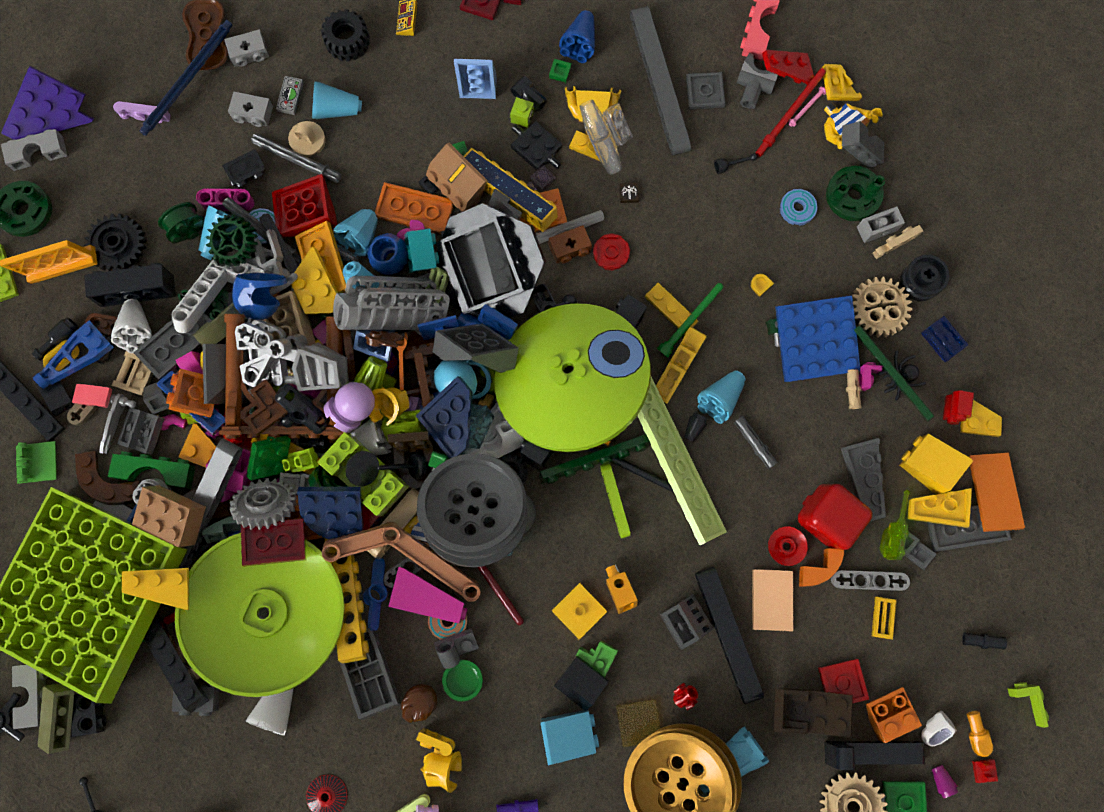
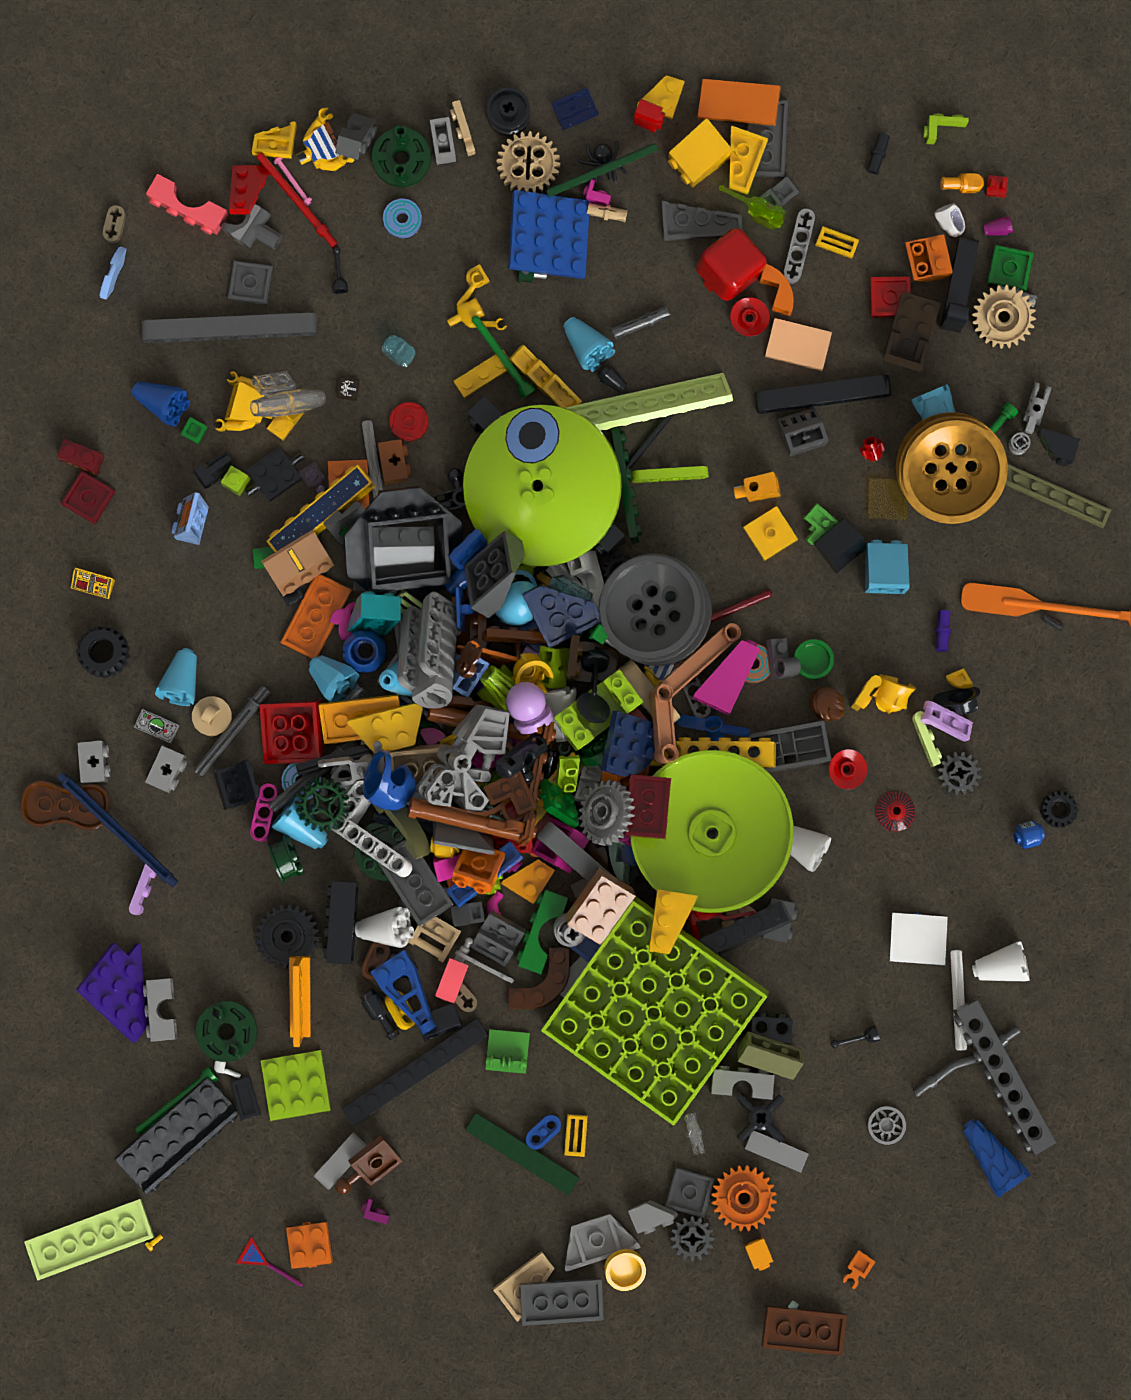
camera: 80 degrees left, 5 degrees up
(355, 746) = (856, 769): none -> red dish
(673, 226) = (398, 350): none -> clear light blue gear
(730, 285) = (472, 308): none -> yellow piece

